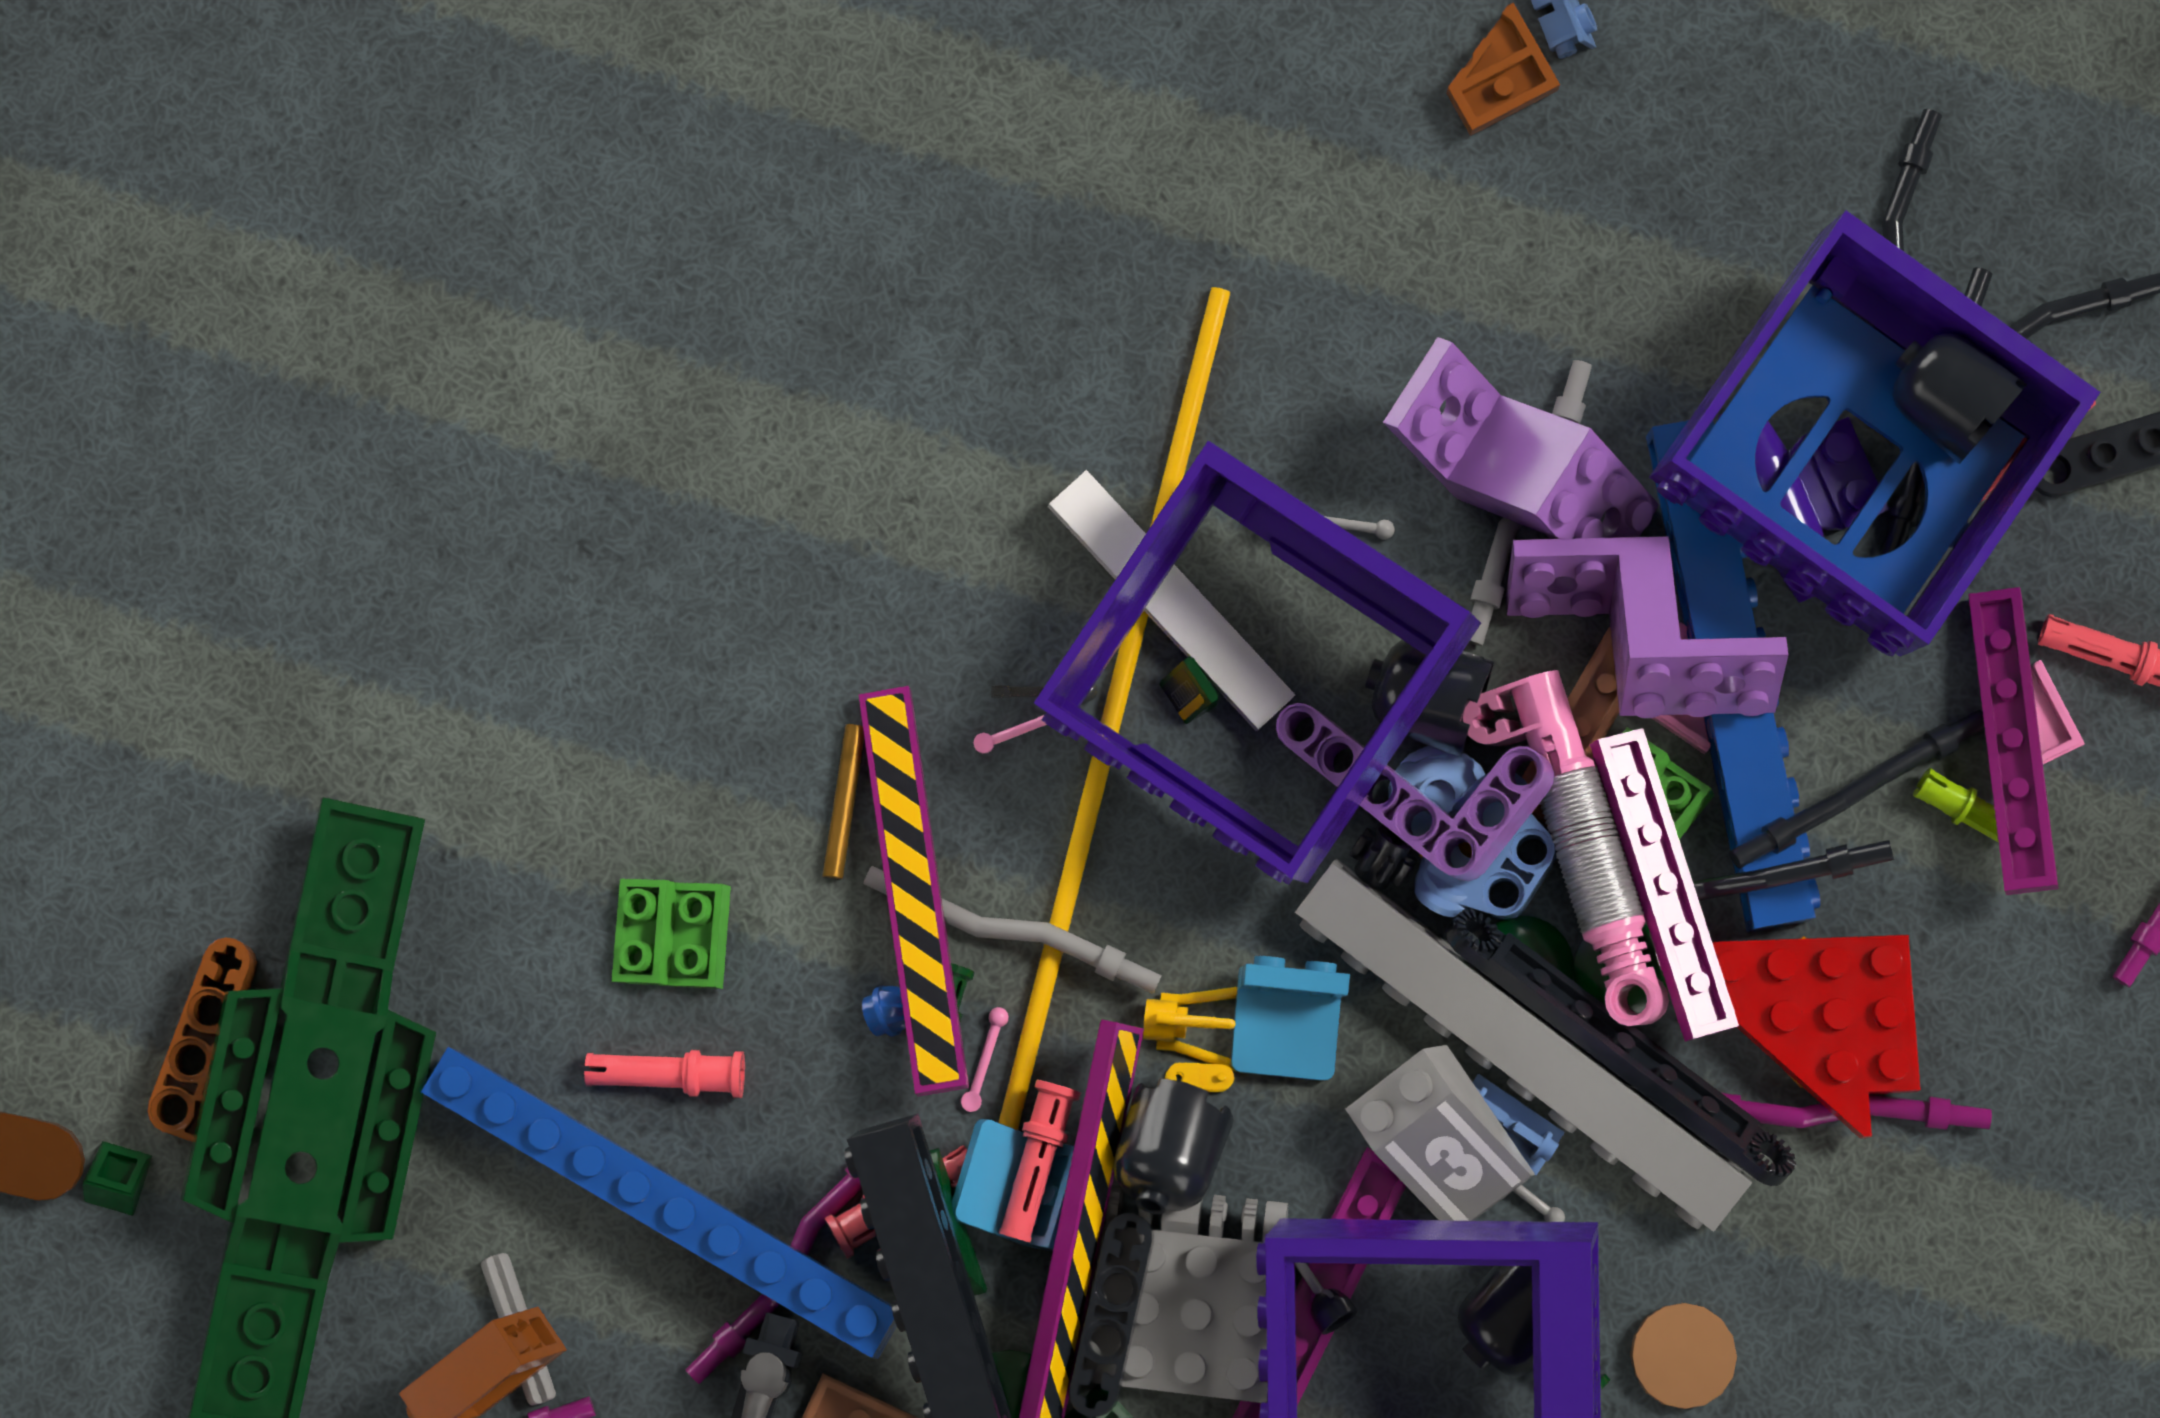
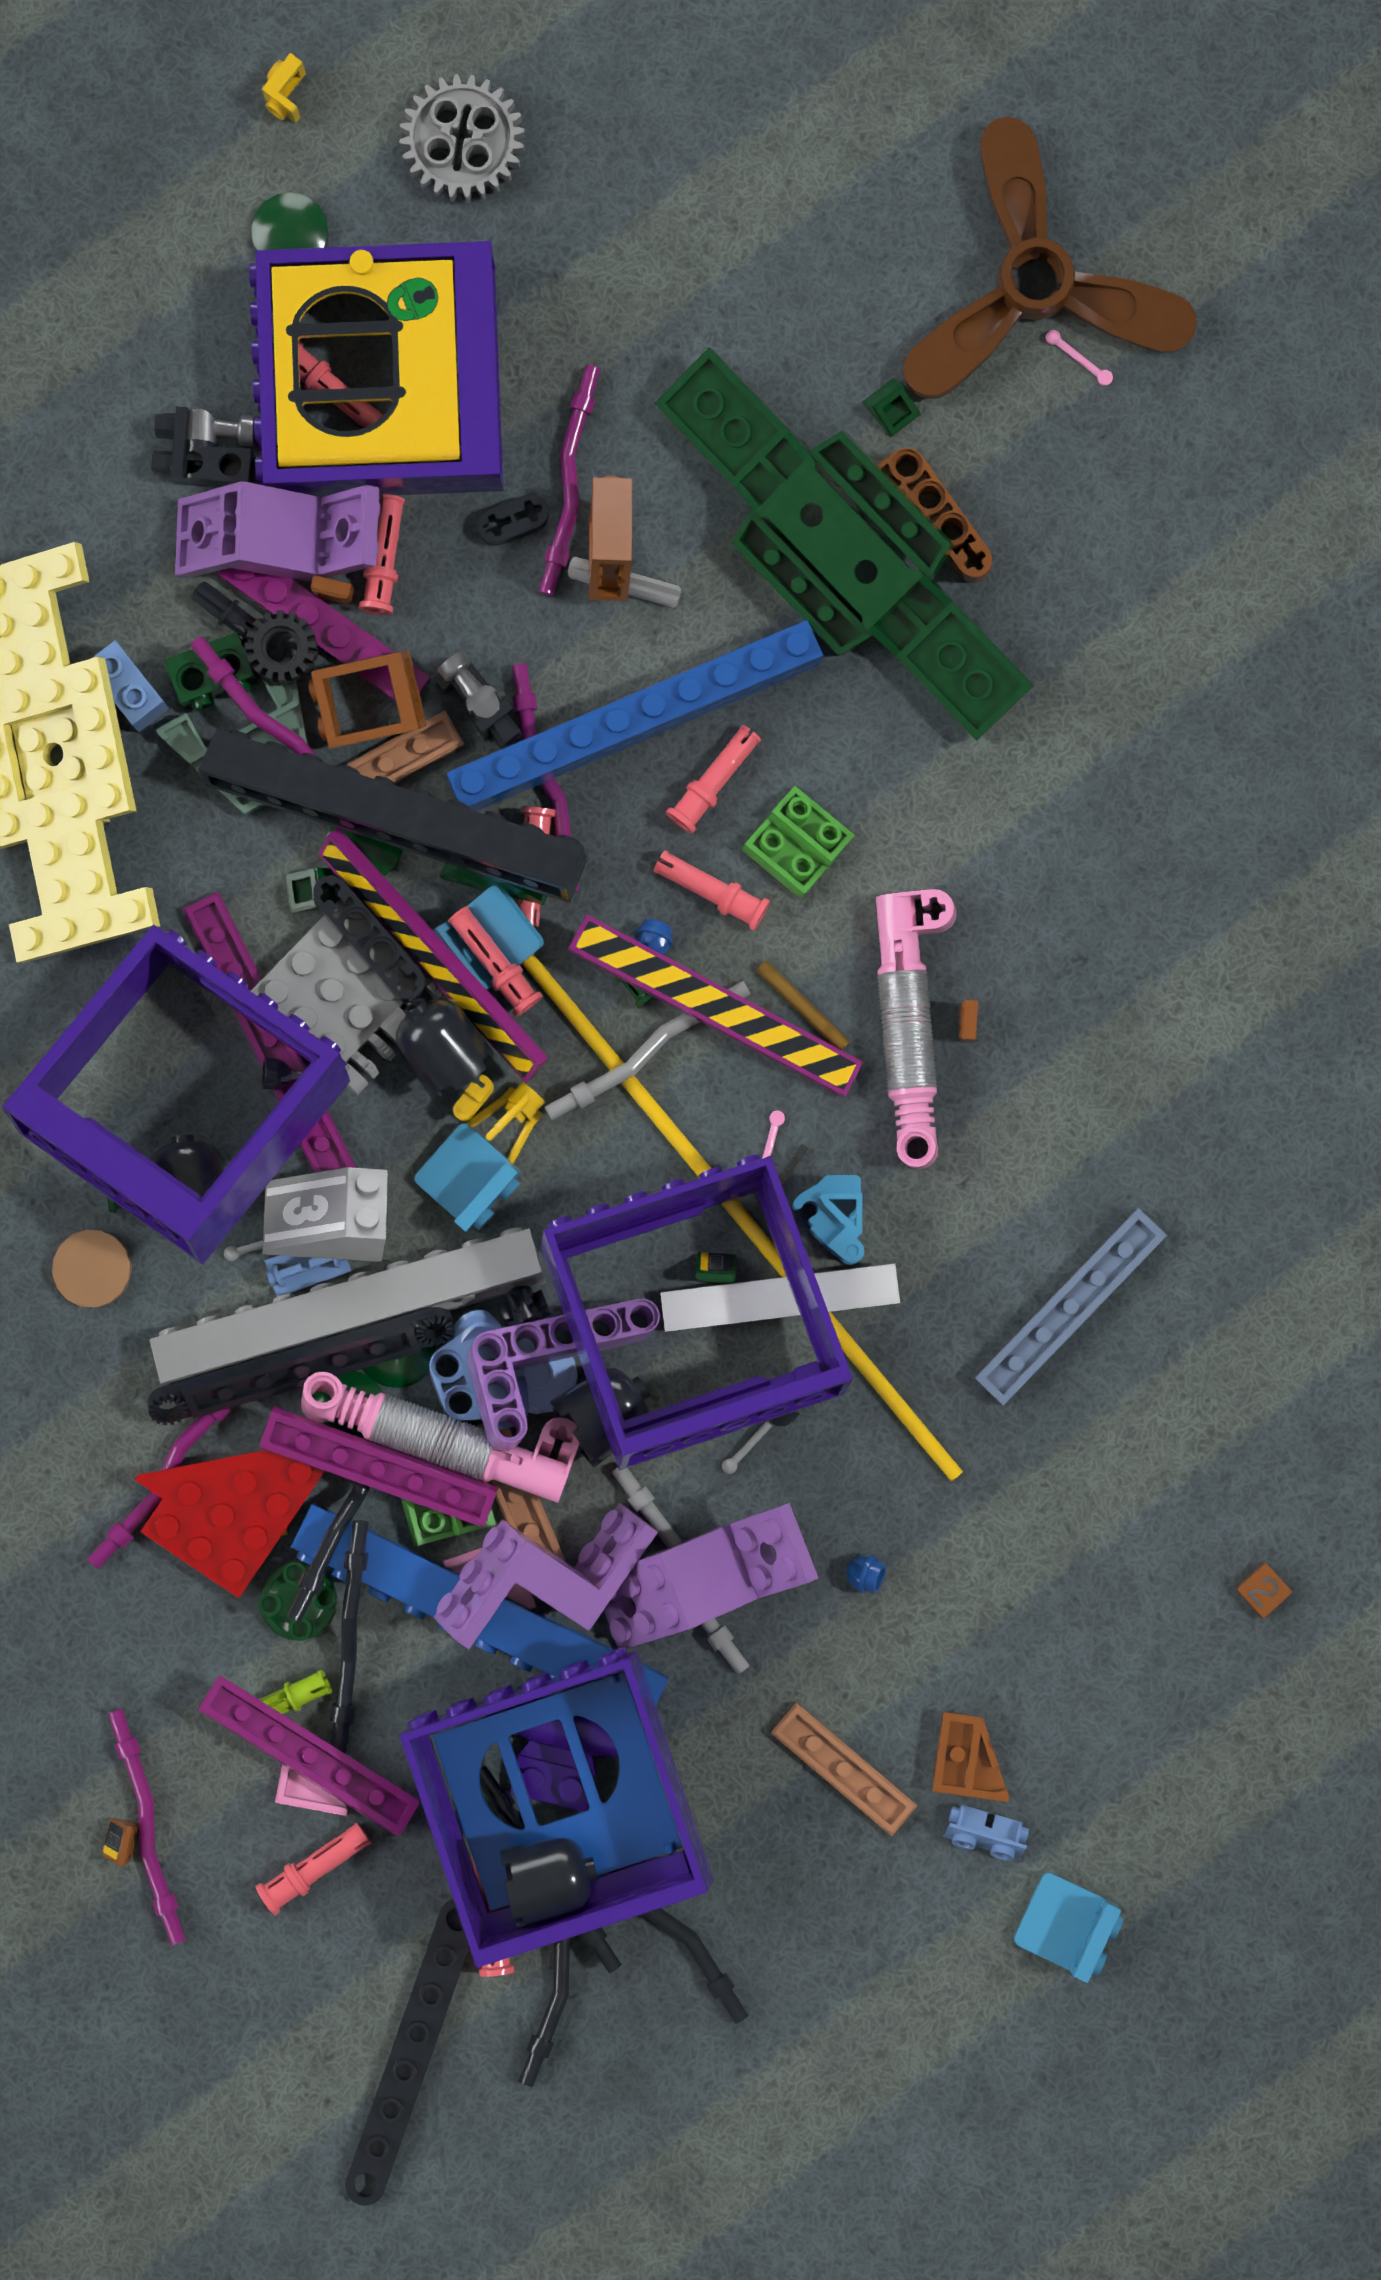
camera: 130 degrees right, 5 degrees up
(735, 614) = (968, 1021): none -> dark orange tile
(784, 961) = (729, 898): none -> coral pin
(791, 673) = (907, 1014): none -> piece
(959, 298) = (1070, 1306): none -> sand blue plate
(972, 1100) = (600, 1003): bright pink hinge -> none
(1042, 599) = (837, 1215): none -> dark azure piece
(1390, 310) = (866, 1574): none -> blue plate
(1604, 192) = (844, 1769): none -> nougat tile
(1873, 890) = (279, 1595): none -> dark green dish

